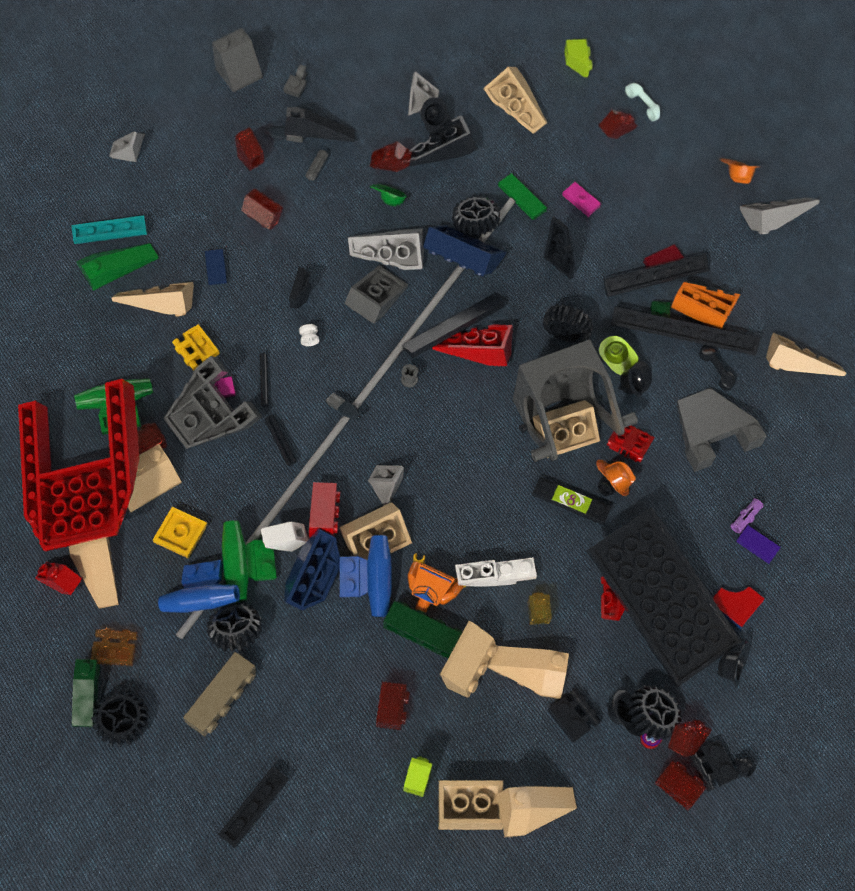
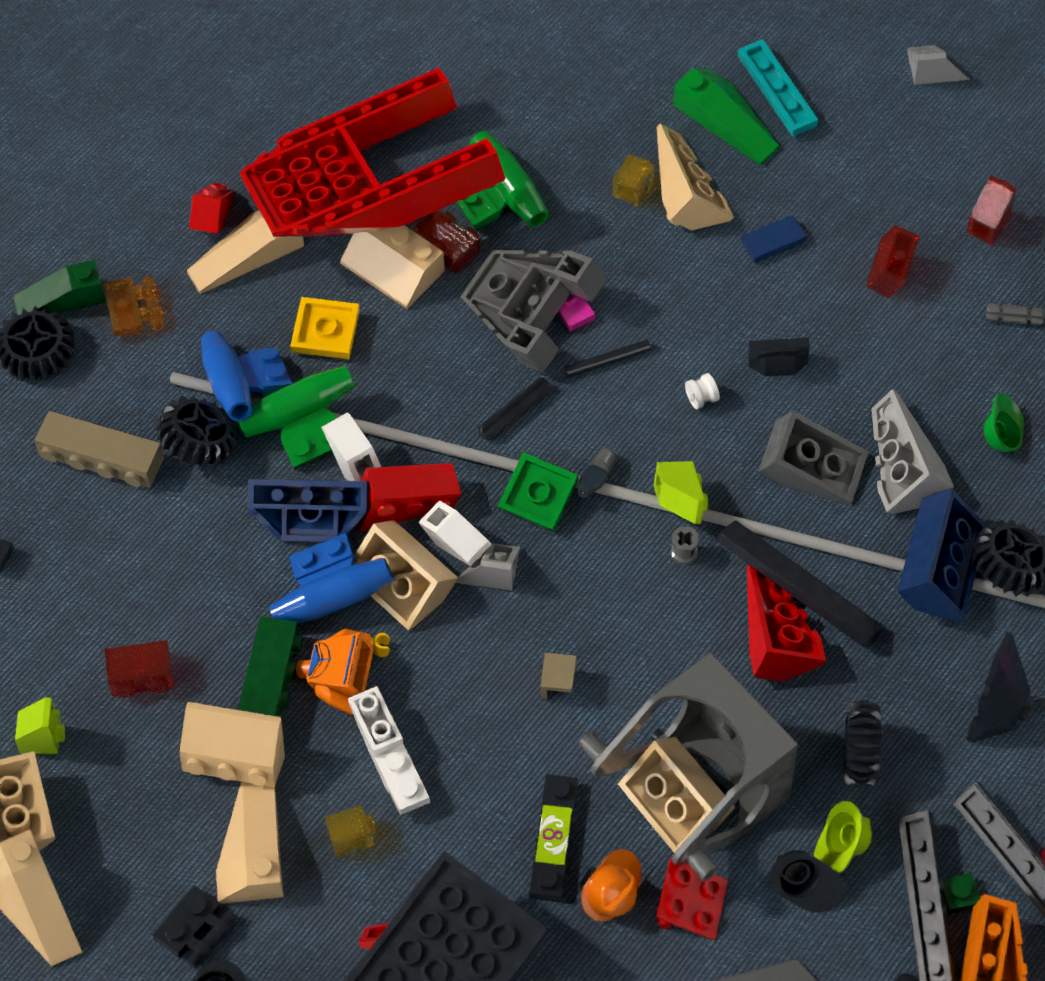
camera: 80 degrees right, 5 degrees down
(144, 326) = (633, 180): none -> clear yellow brick
(199, 342) = (632, 260): yellow plate -> none
(347, 442) = (538, 492): none -> green plate
(363, 494) = (454, 533): none -> white slope
(375, 365) = (680, 490): none -> lime slope
(473, 467) = (557, 673): none -> dark tan panel

